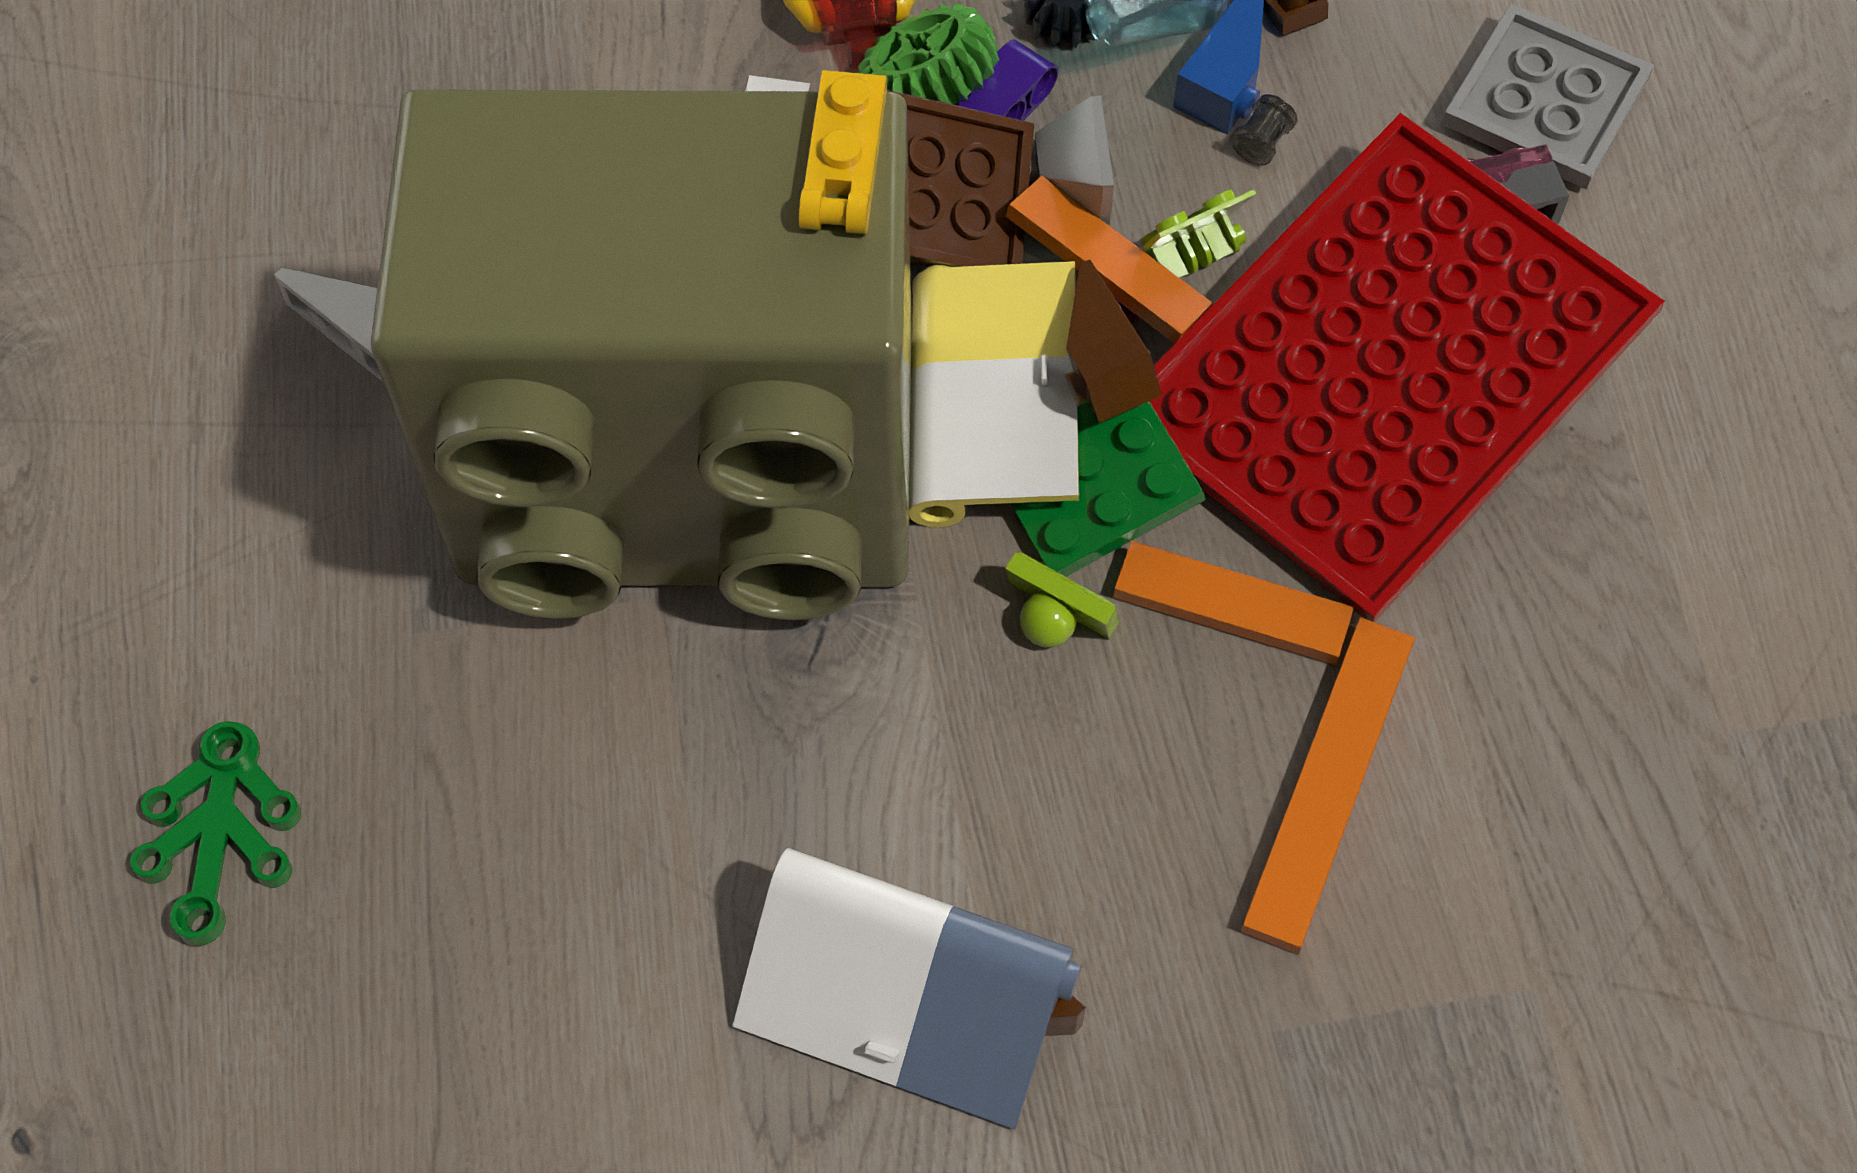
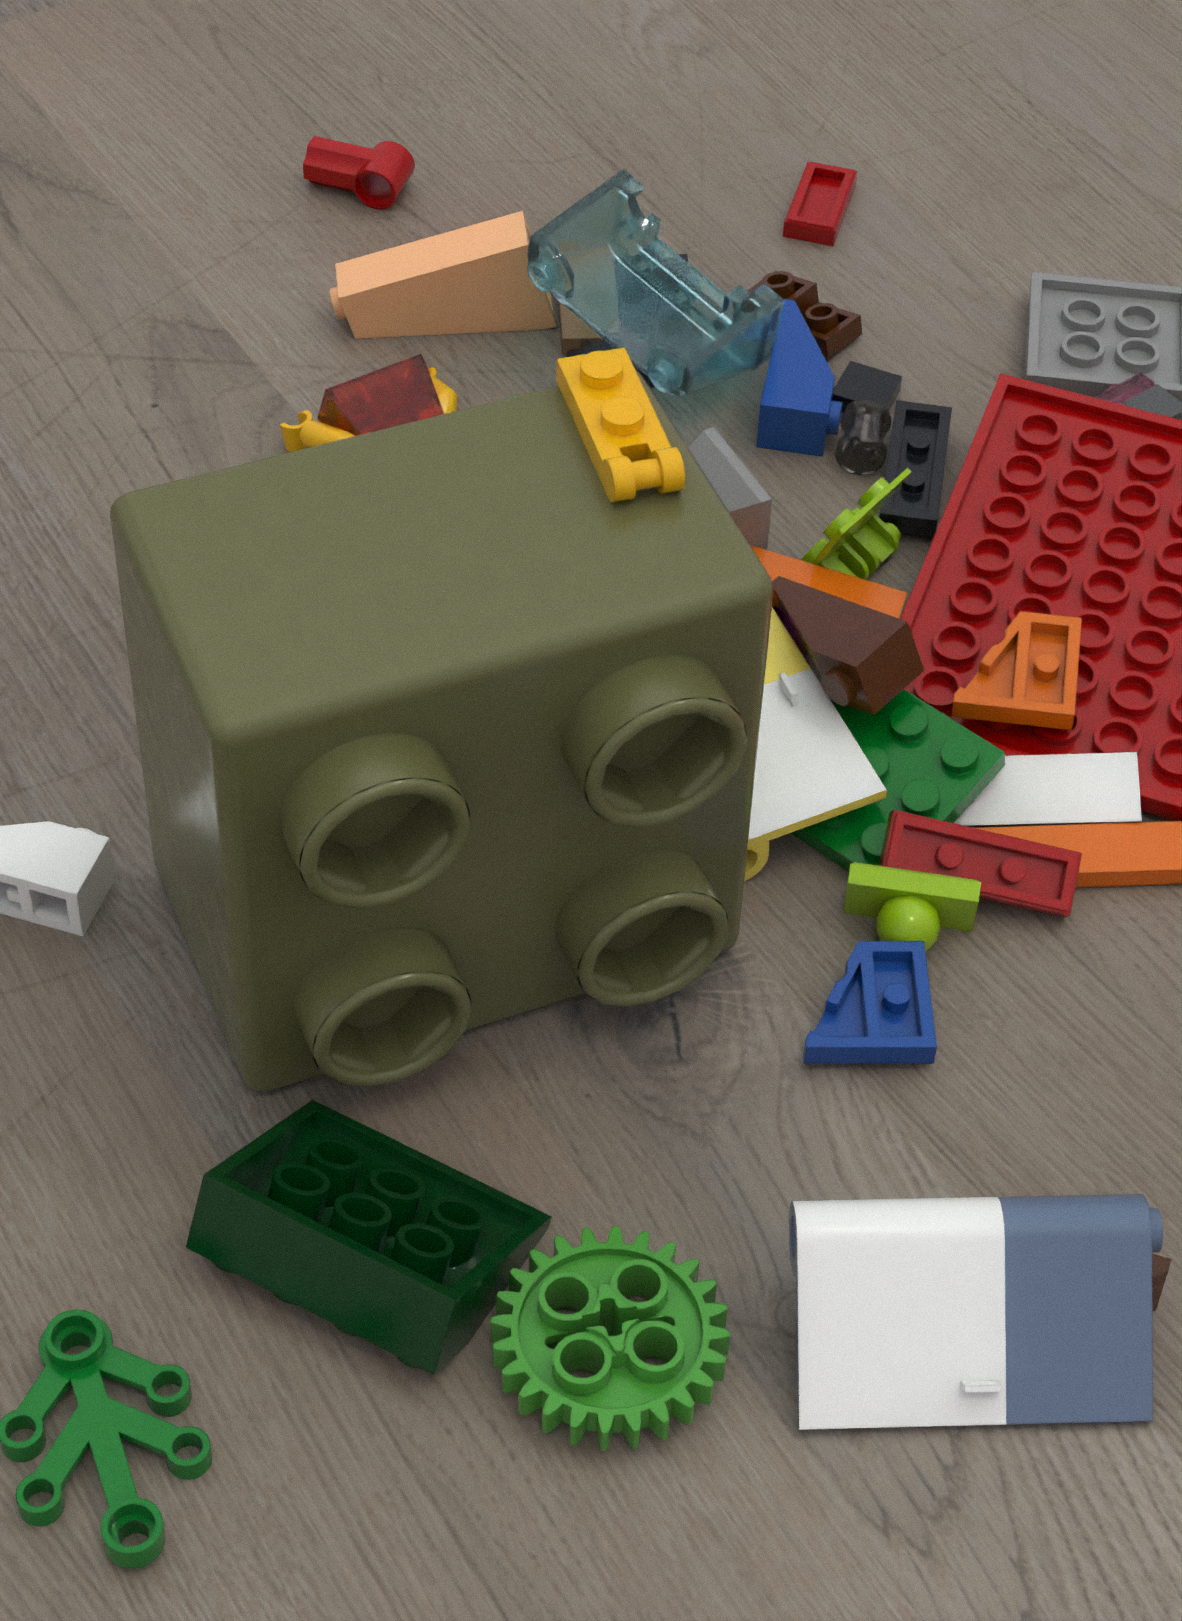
camera: 25 degrees left, 15 degrees down
(482, 736) = (364, 1233): none -> dark green slope
(604, 946) = (609, 1337): none -> bright green gear
(982, 687) = (877, 1009): none -> blue wing
(1135, 586) = (1008, 867): none -> red tile
(1245, 538) = (1059, 791): none -> white sticker
(1265, 423) = (1027, 675): none -> orange wing
(1295, 173) = (920, 445): none -> black plate
(1296, 80) = (868, 383): none -> black tile

